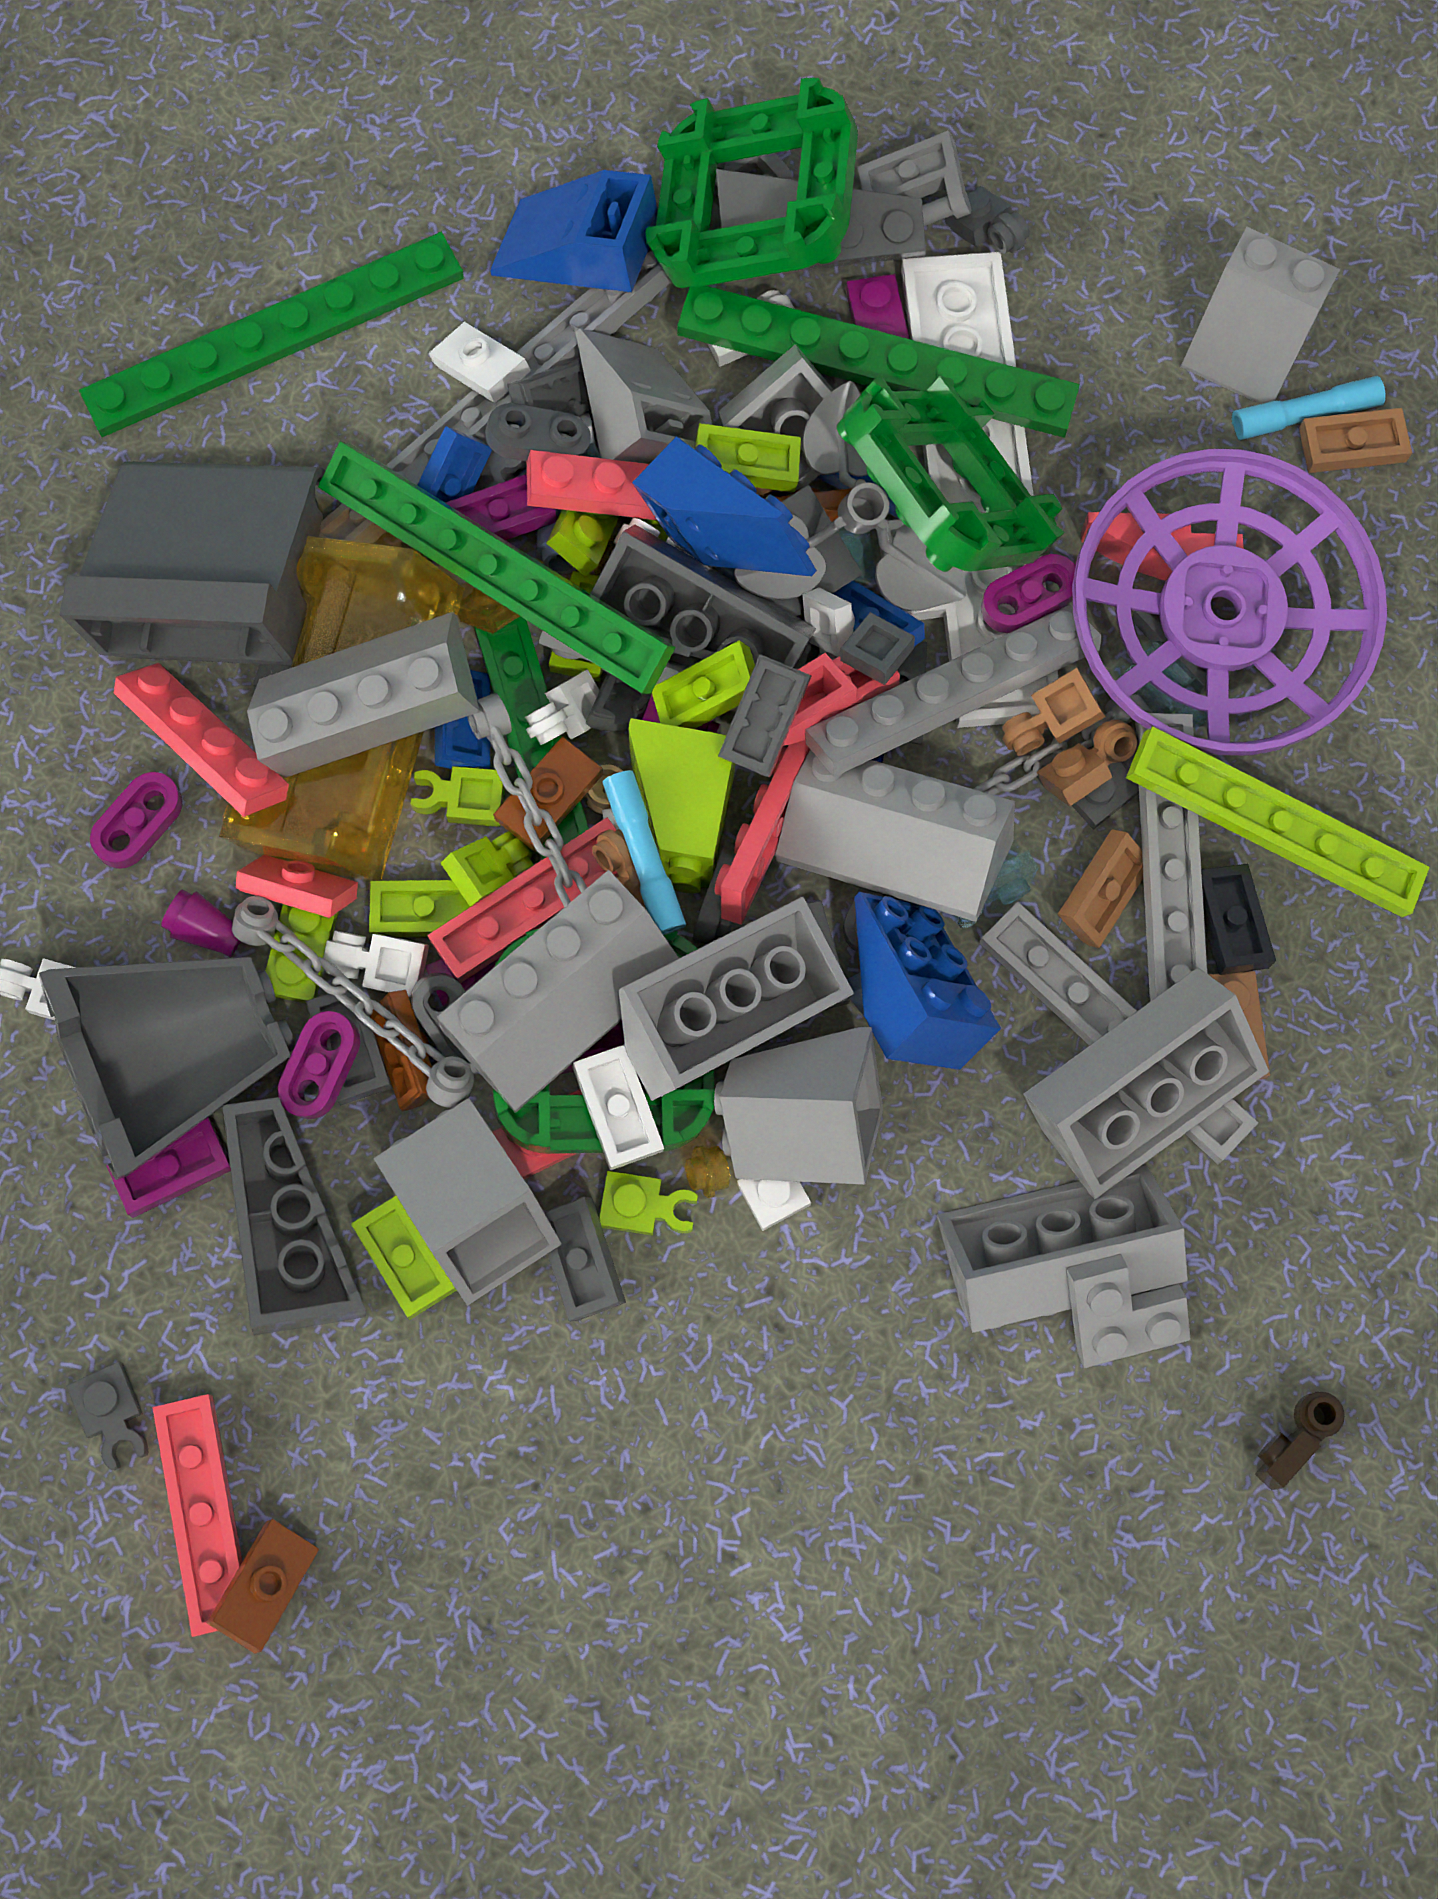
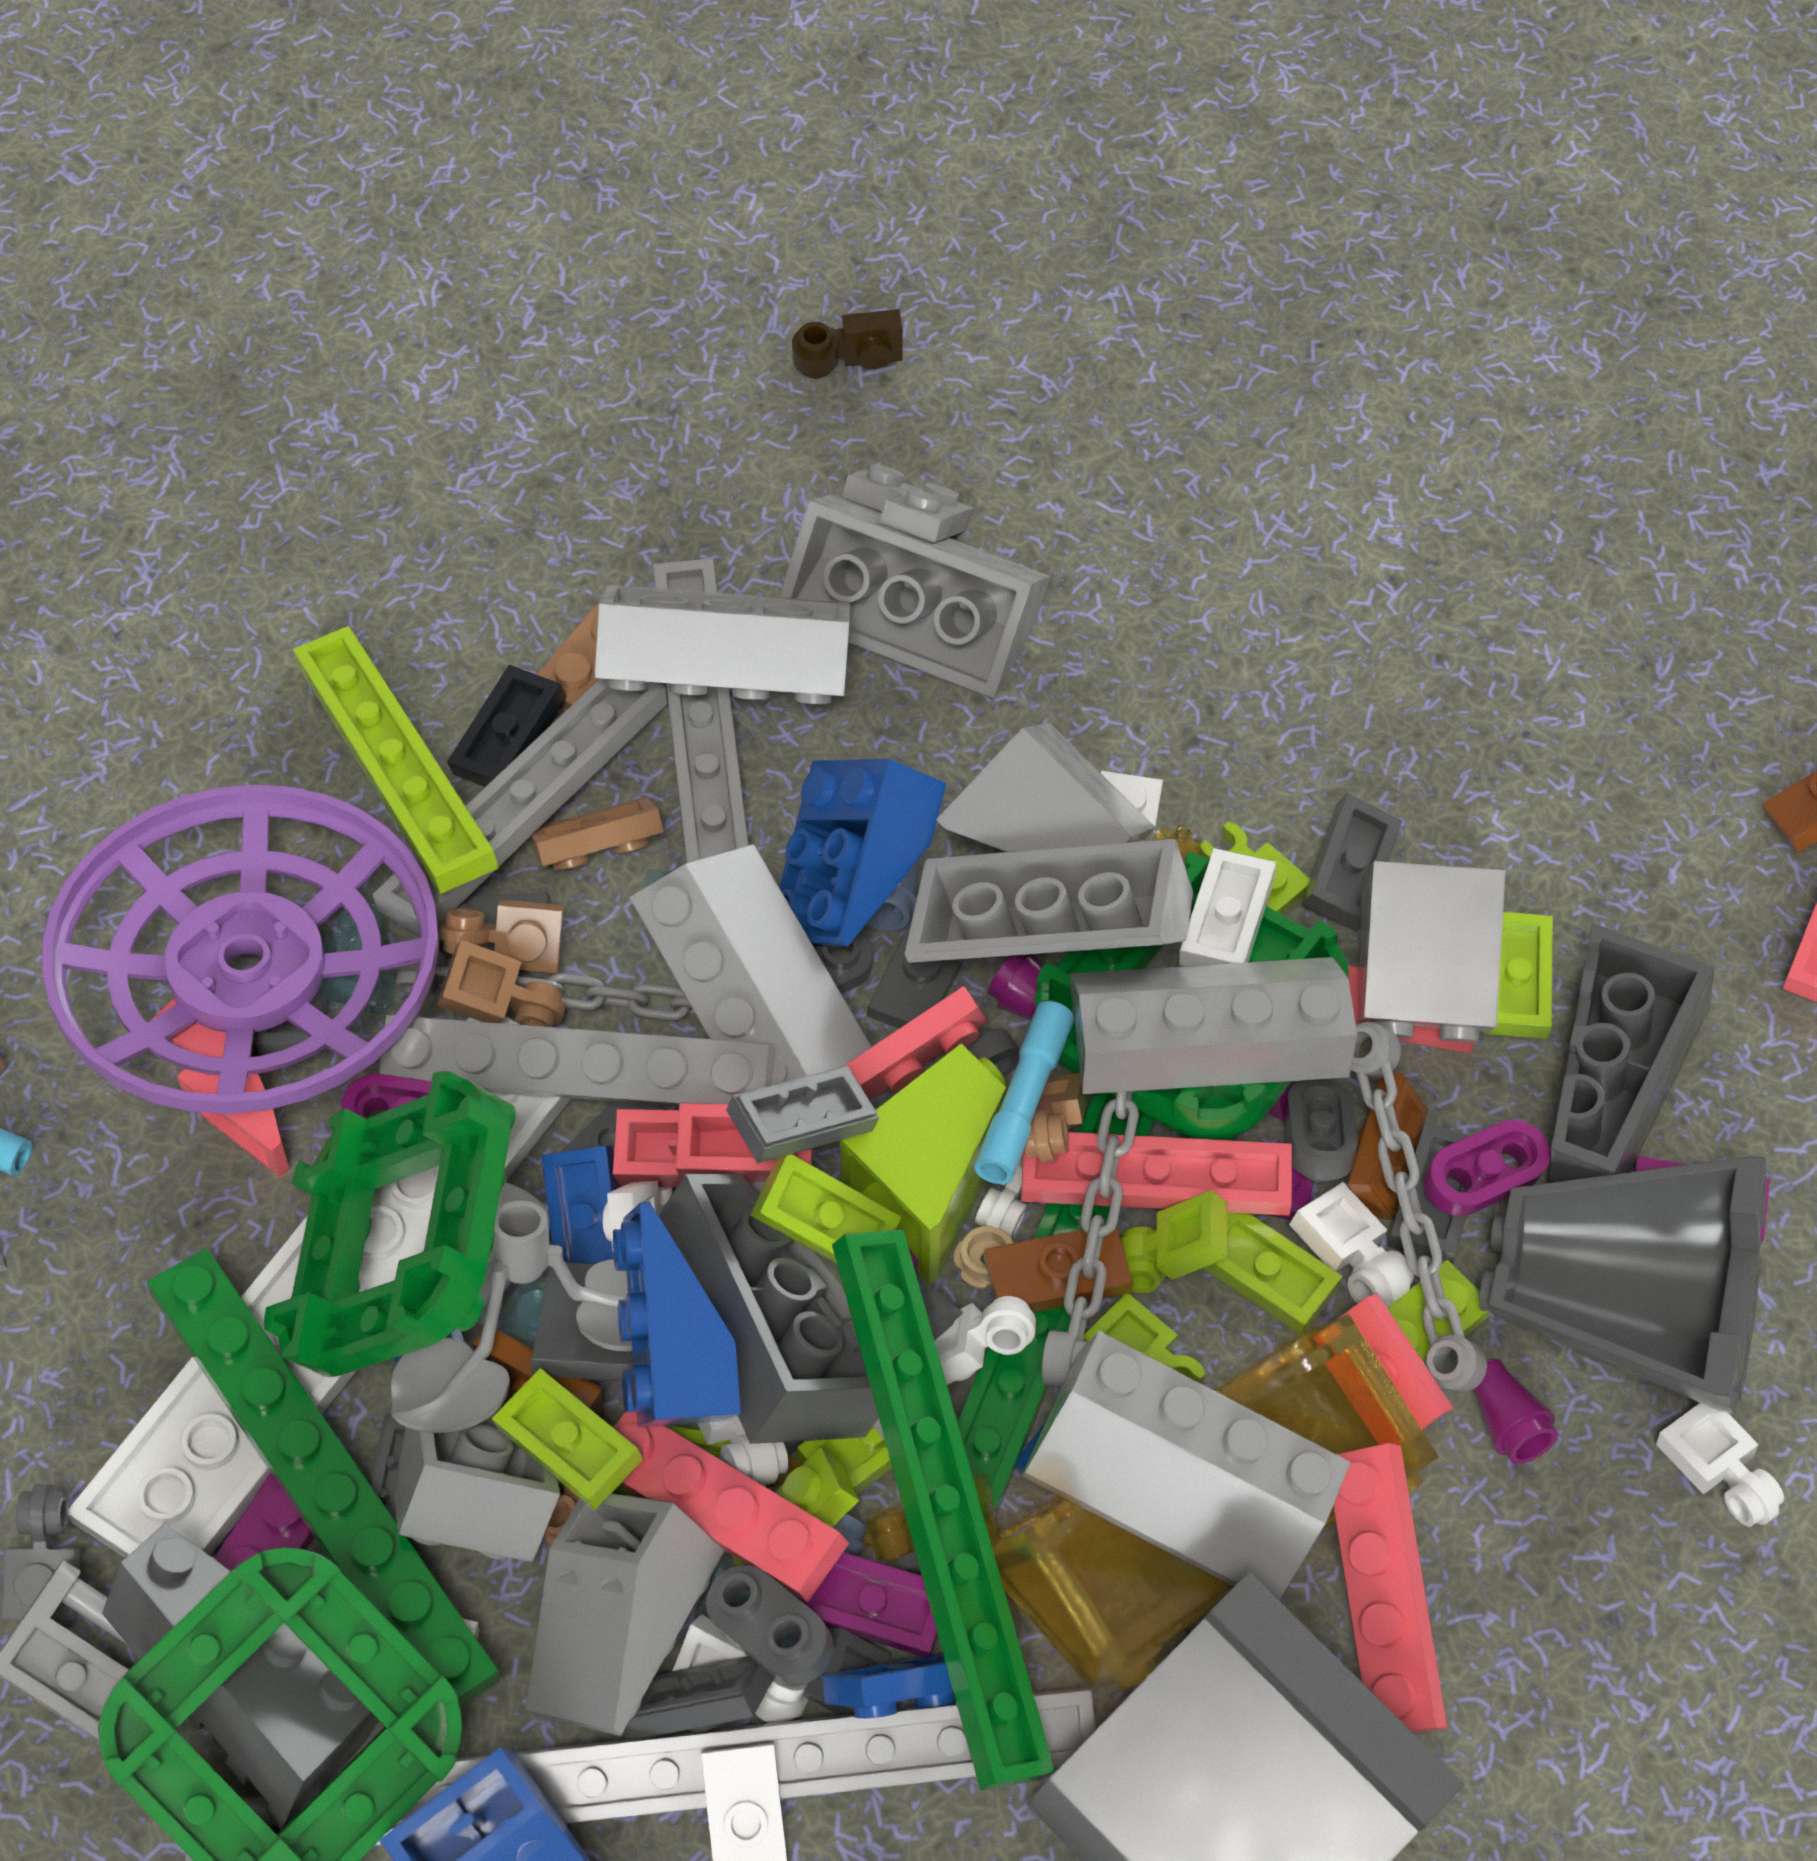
camera: 140 degrees left, 15 degrees down
(130, 817) = (1508, 1571): magenta plate -> none
(877, 648) = (621, 1133): dark grey plate -> none

